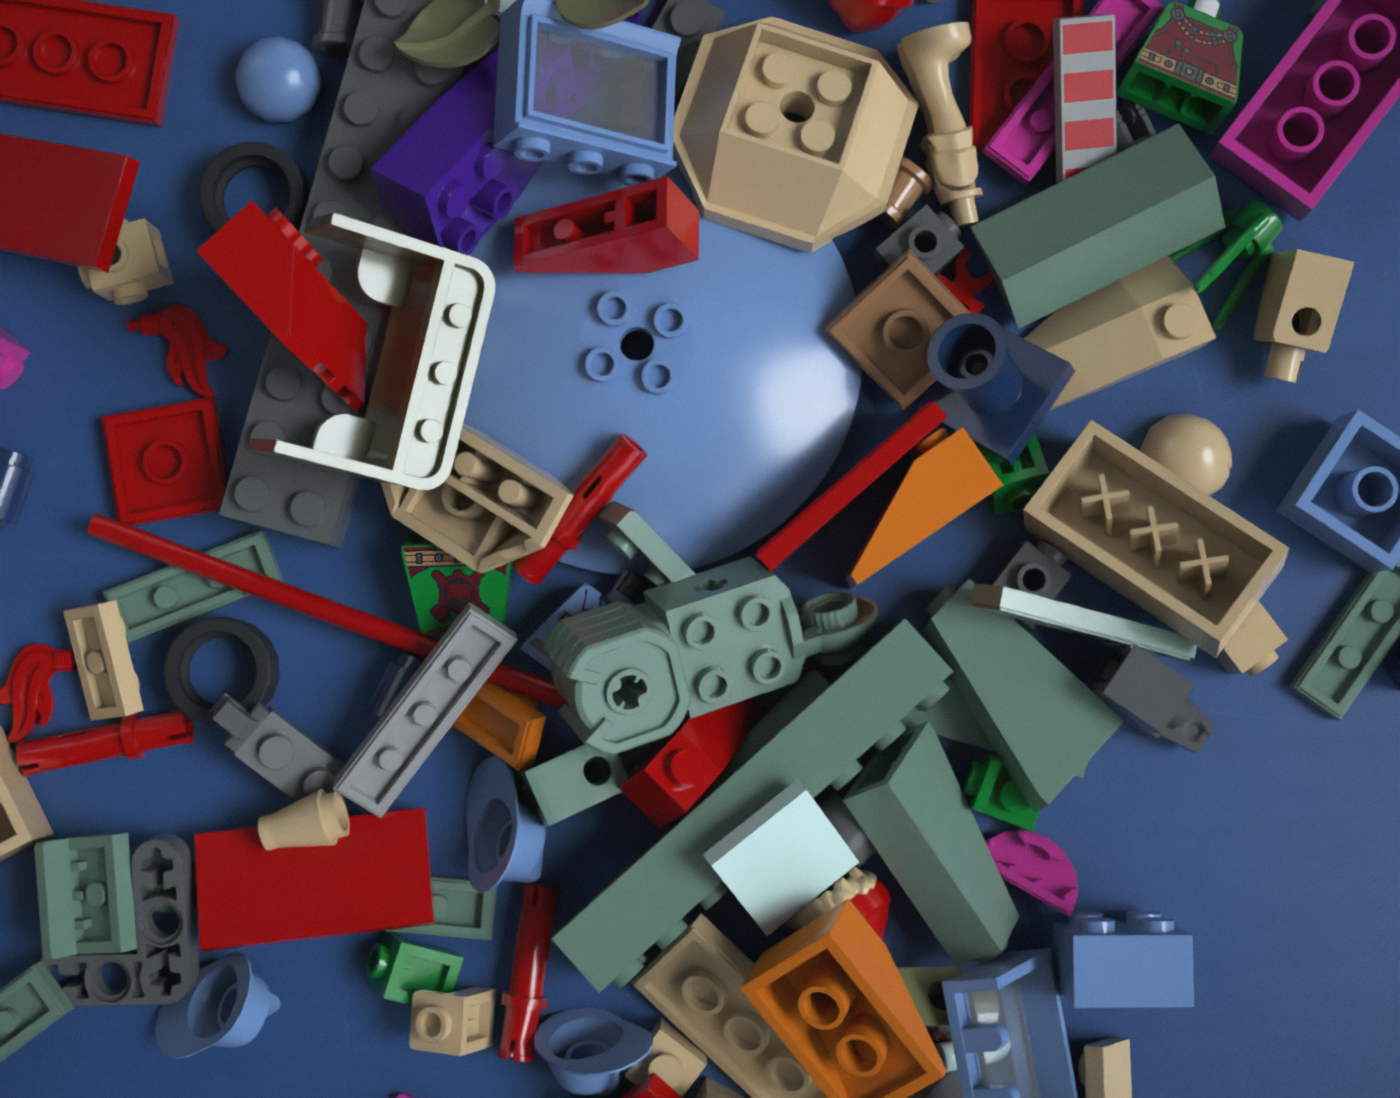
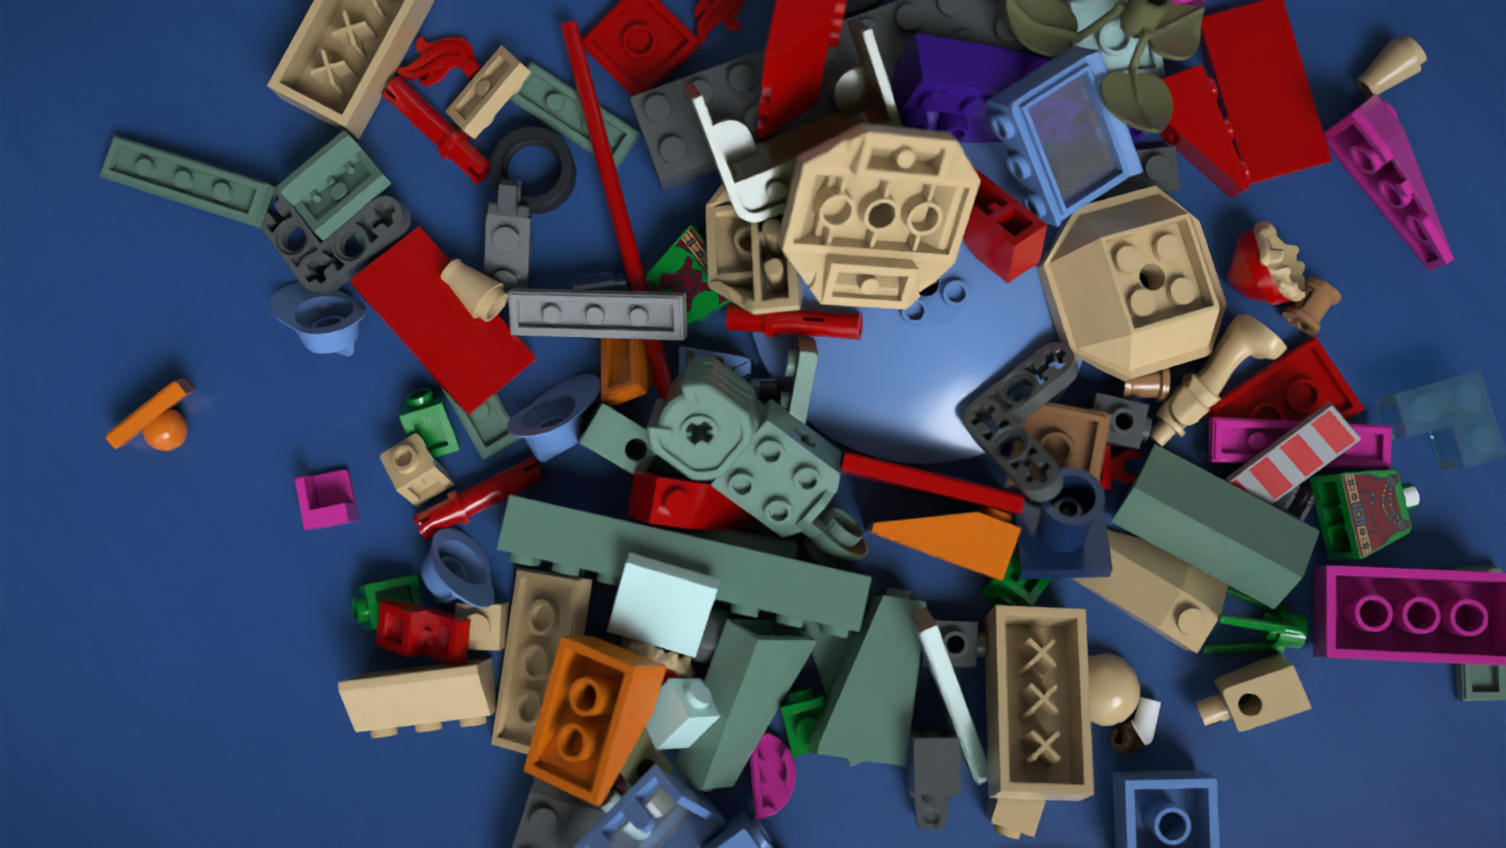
camera: 55 degrees right, 0 degrees up
(581, 359) = (886, 252): none -> tan piece
(835, 356) = (1009, 414): none -> dark grey beam
(908, 917) = (681, 713): none -> light aqua brick
(1252, 456) = (1138, 731): none -> arm

